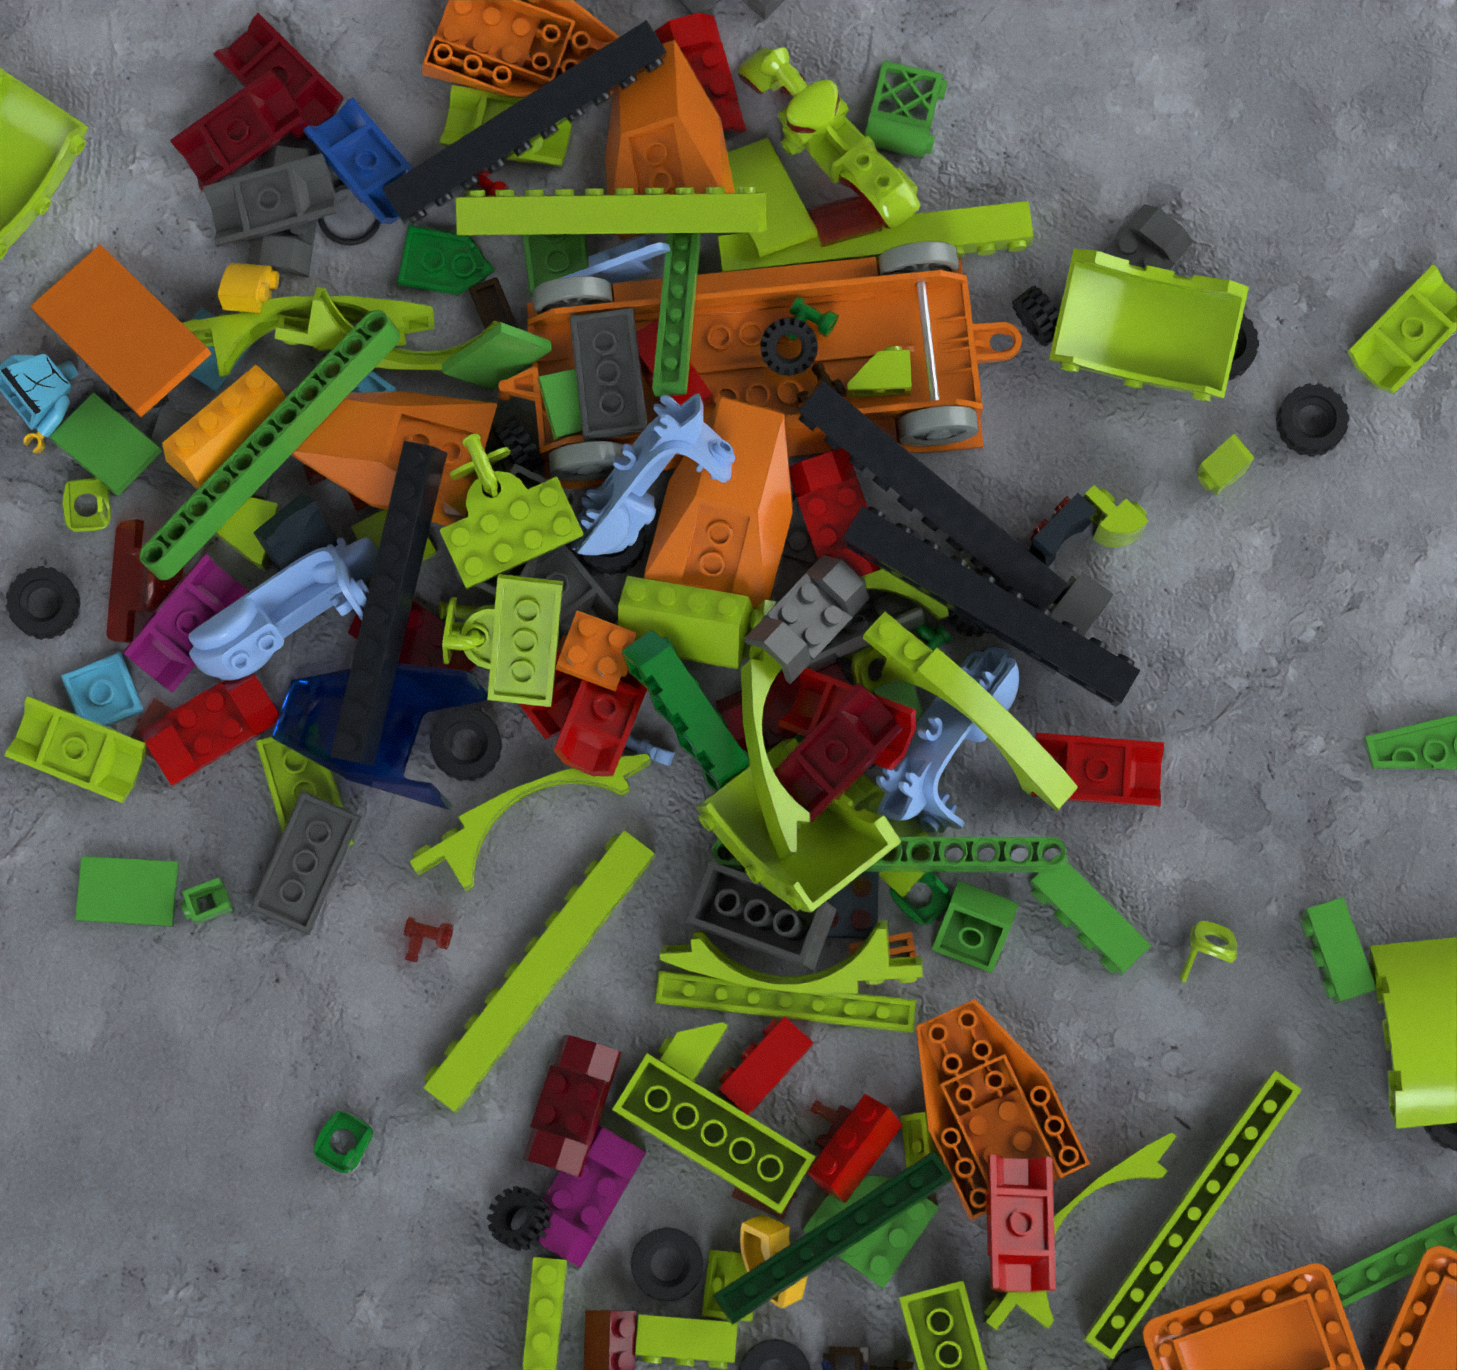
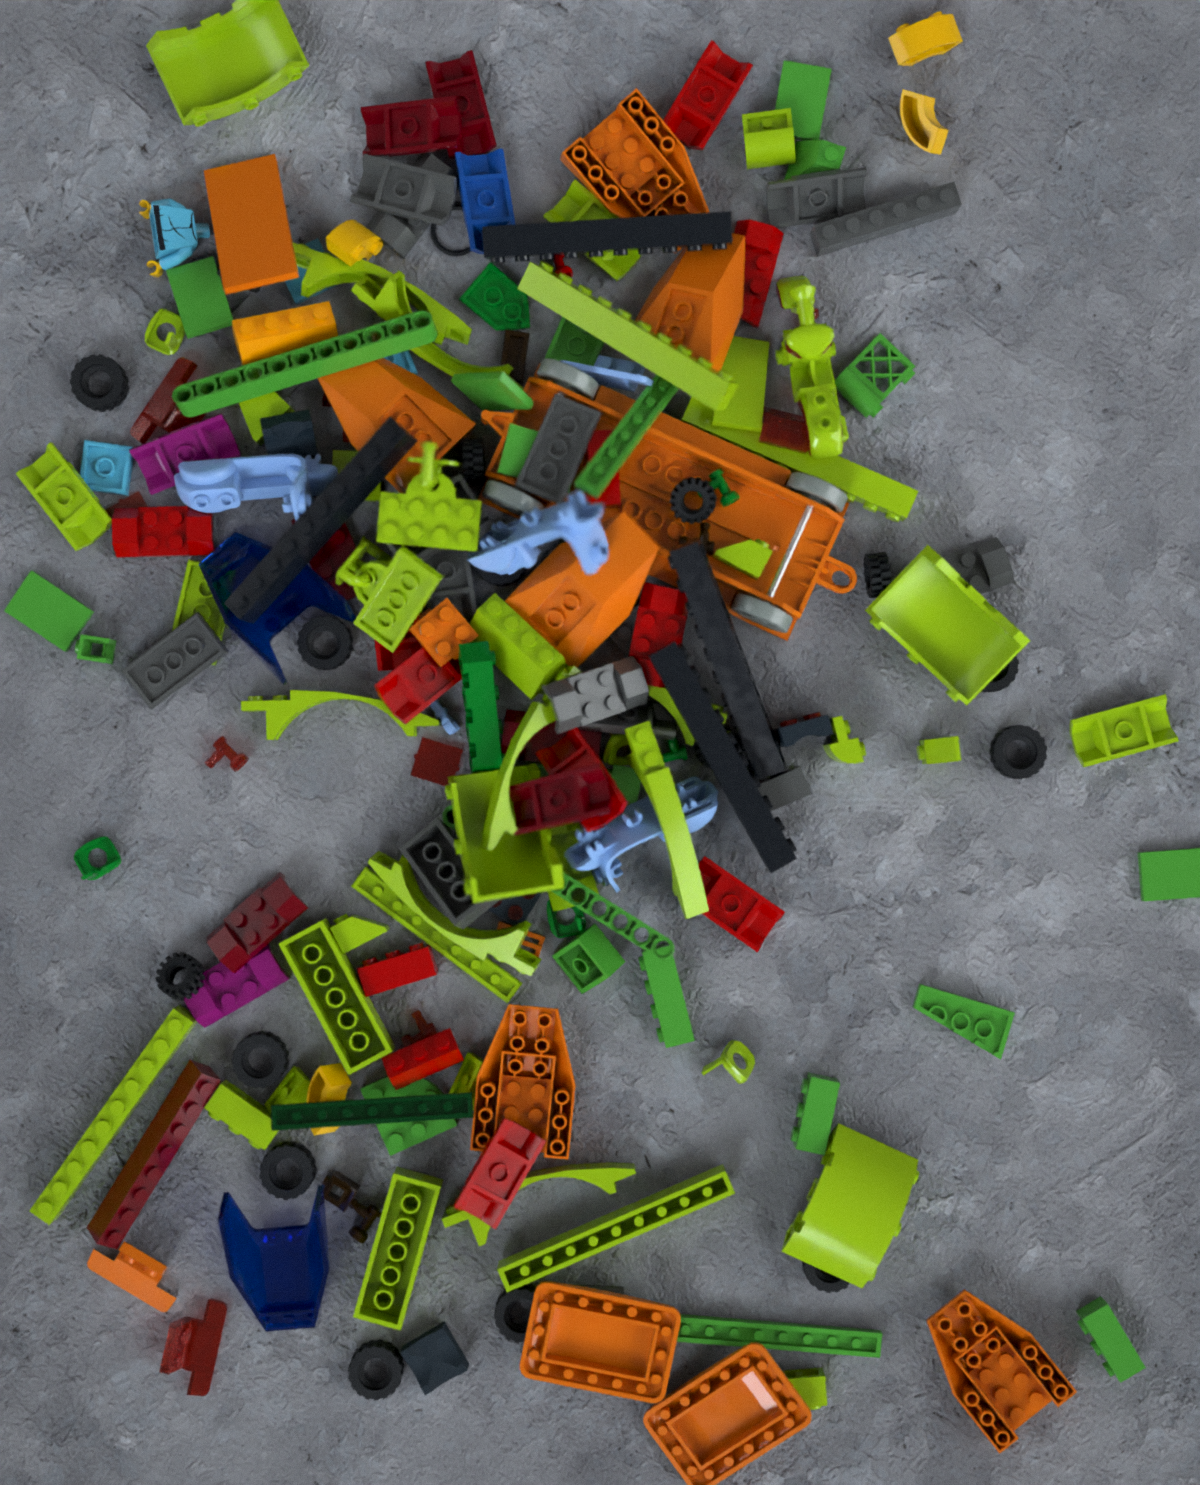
camera: 30 degrees right, 10 degrees up
(539, 972) = (287, 822): lime brick -> none
(669, 807) = (436, 761): none -> clear red piece

